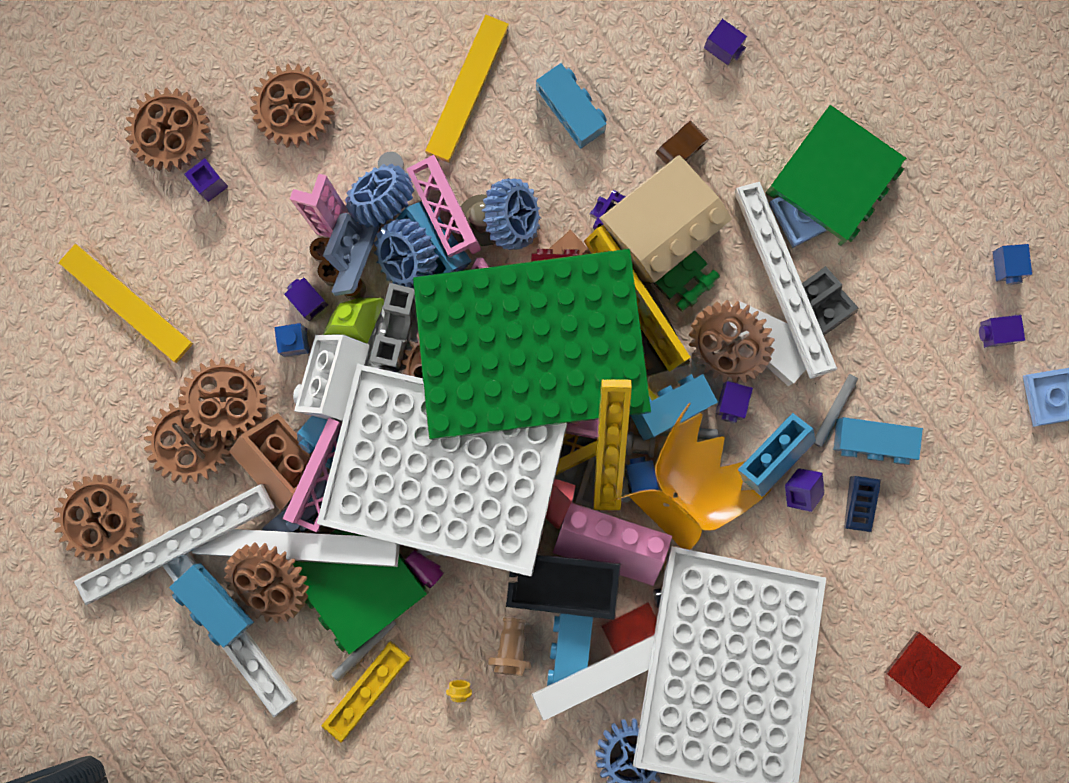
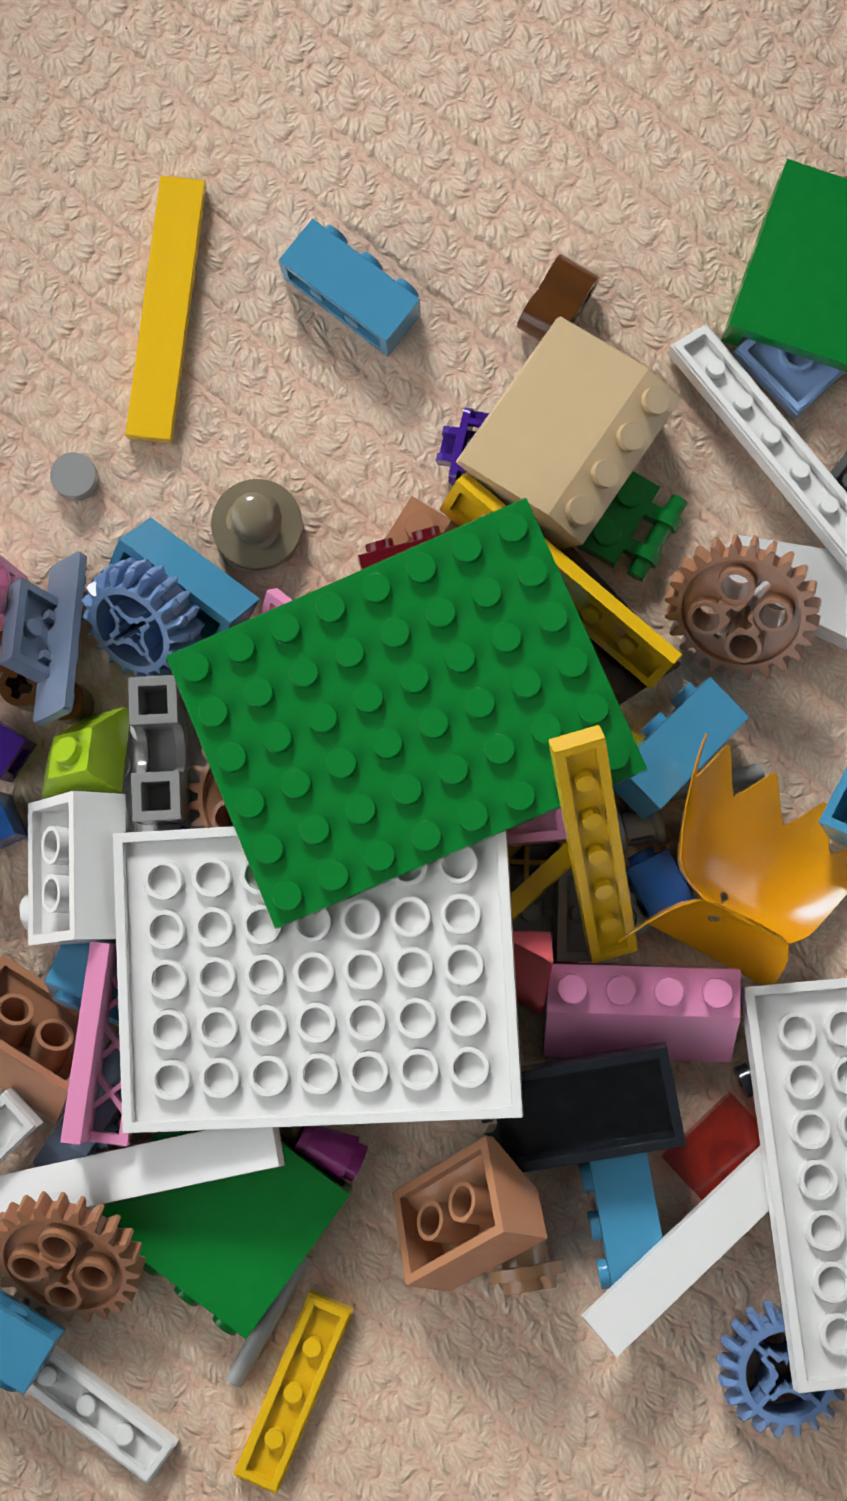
camera: 10 degrees left, 0 degrees up
(379, 195) = (68, 532): medium blue gear -> none
(453, 207) = (201, 516): bright pink fence -> none
(459, 691) = (453, 1342): yellow plate -> none
(485, 624) = (466, 1217): none -> nougat slope
(511, 214) = (303, 498): medium blue gear -> none
(726, 42) = (580, 106): dark purple brick -> none
(733, 401) = (774, 708): dark purple brick -> none

